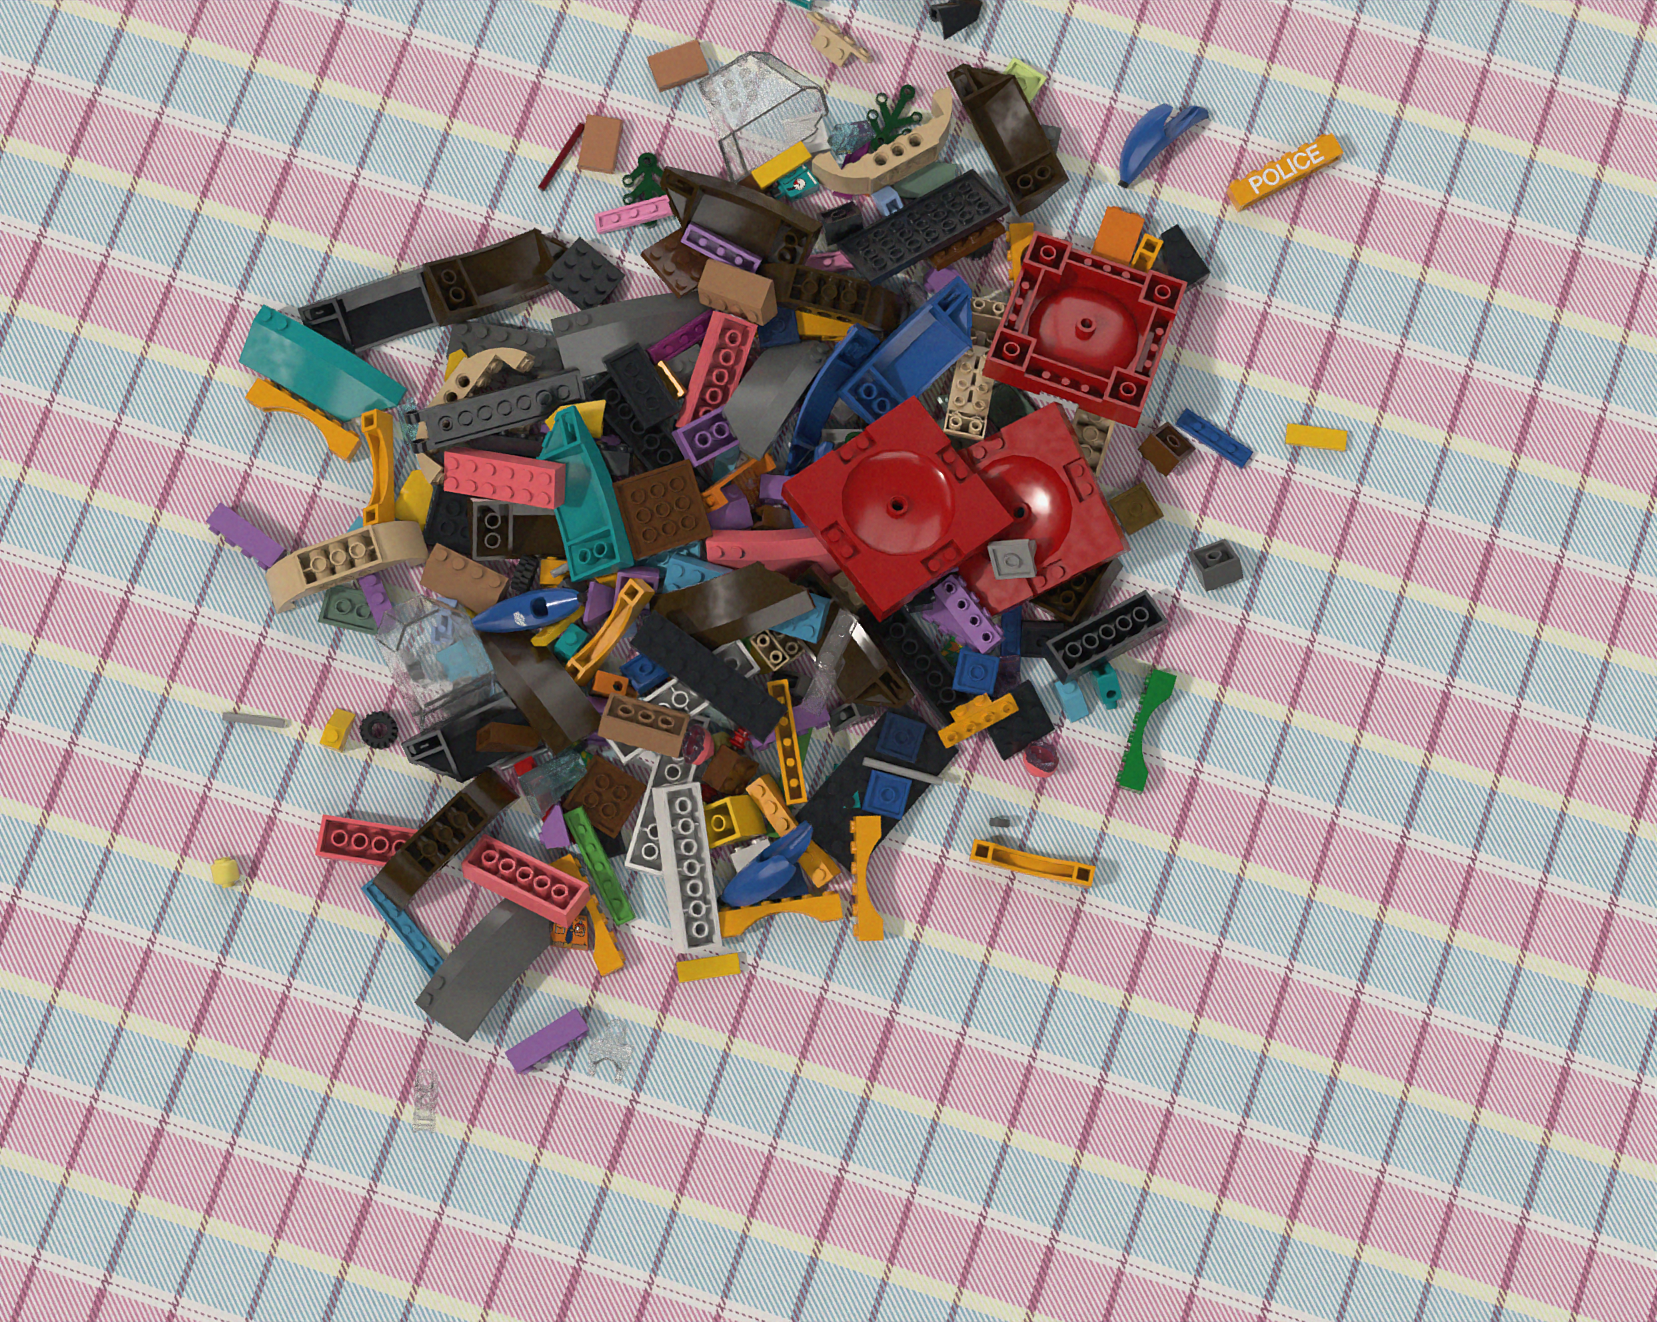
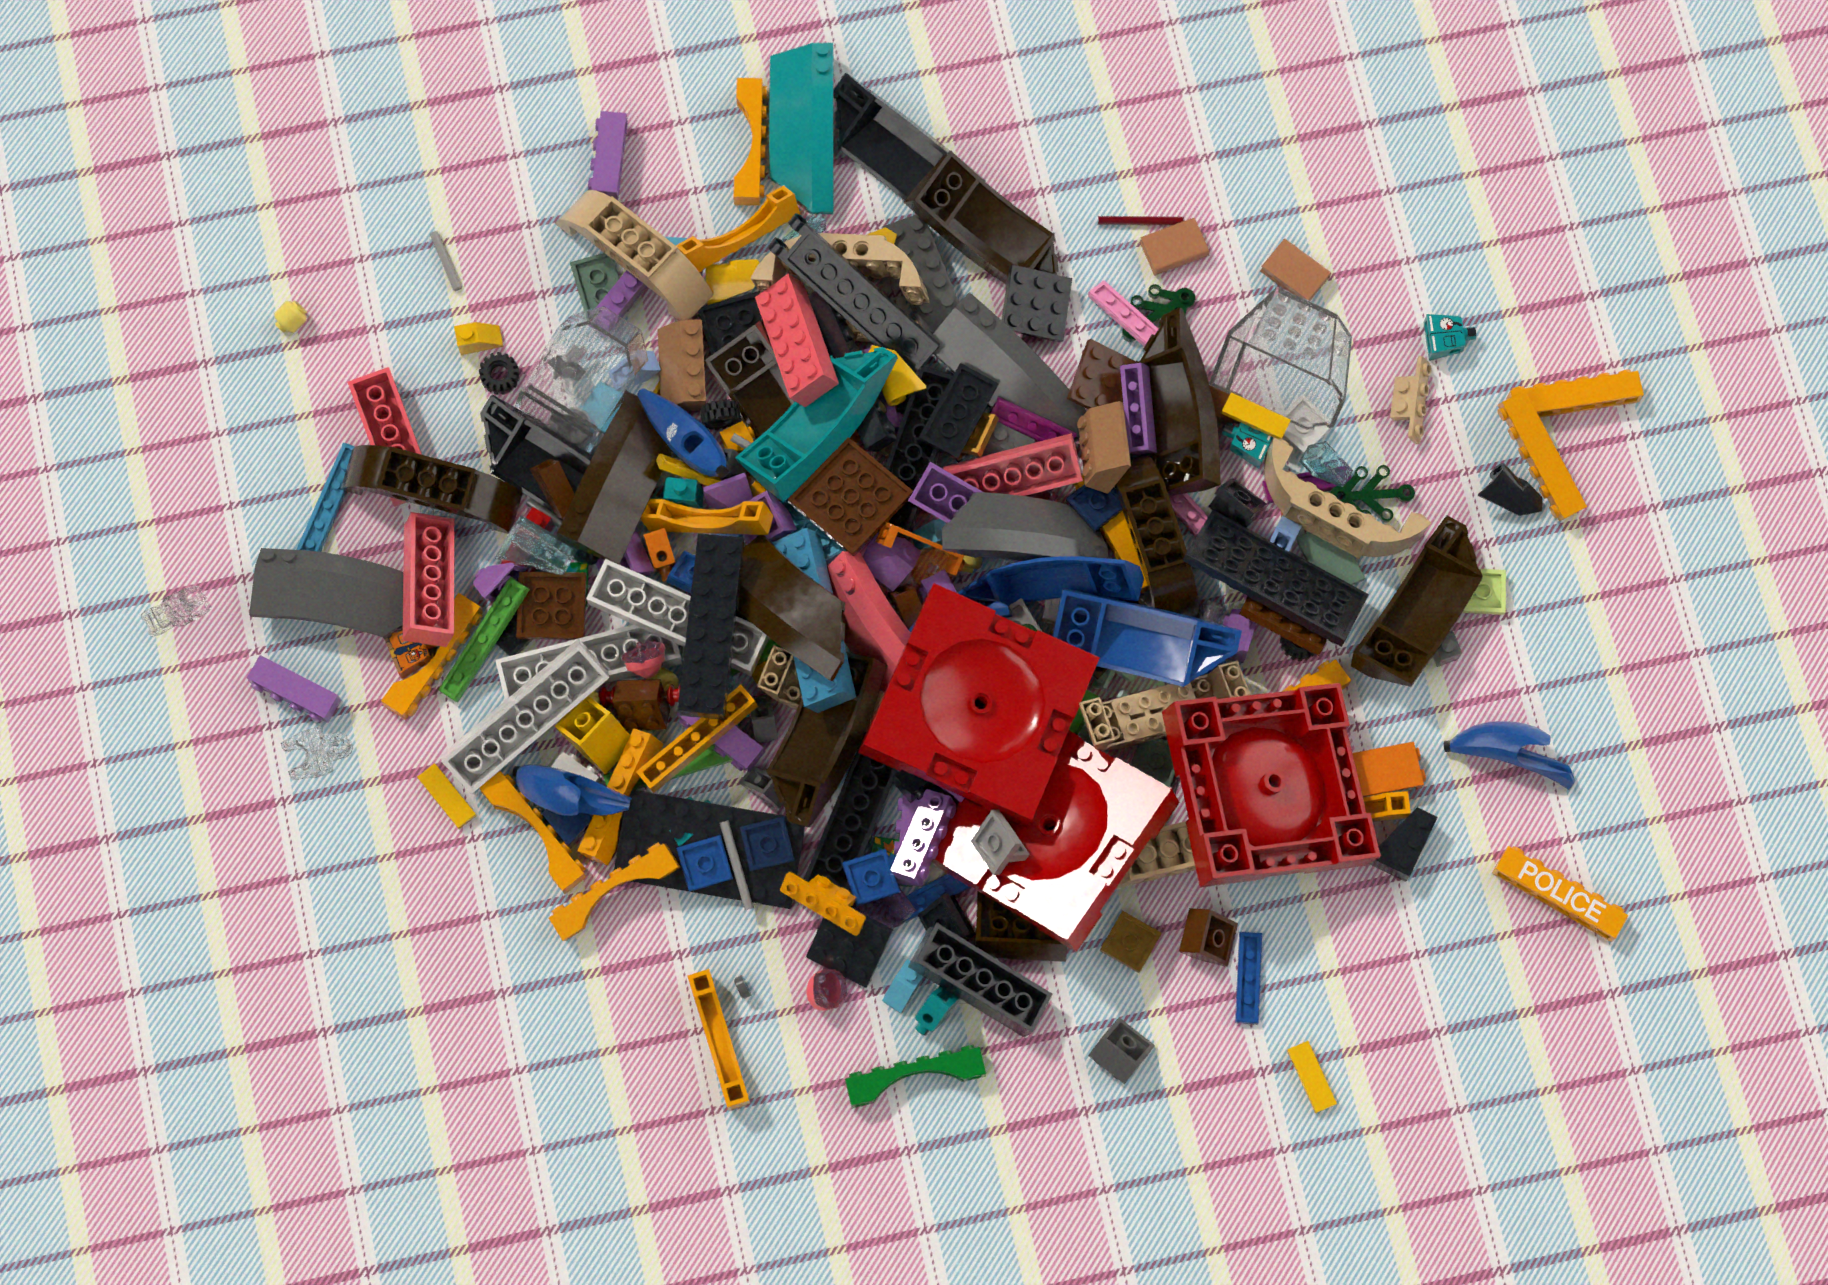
camera: 60 degrees right, 5 degrees down
(643, 725) = (631, 594): medium nougat slope -> none
(829, 662) = (795, 732): clear bracket -> none

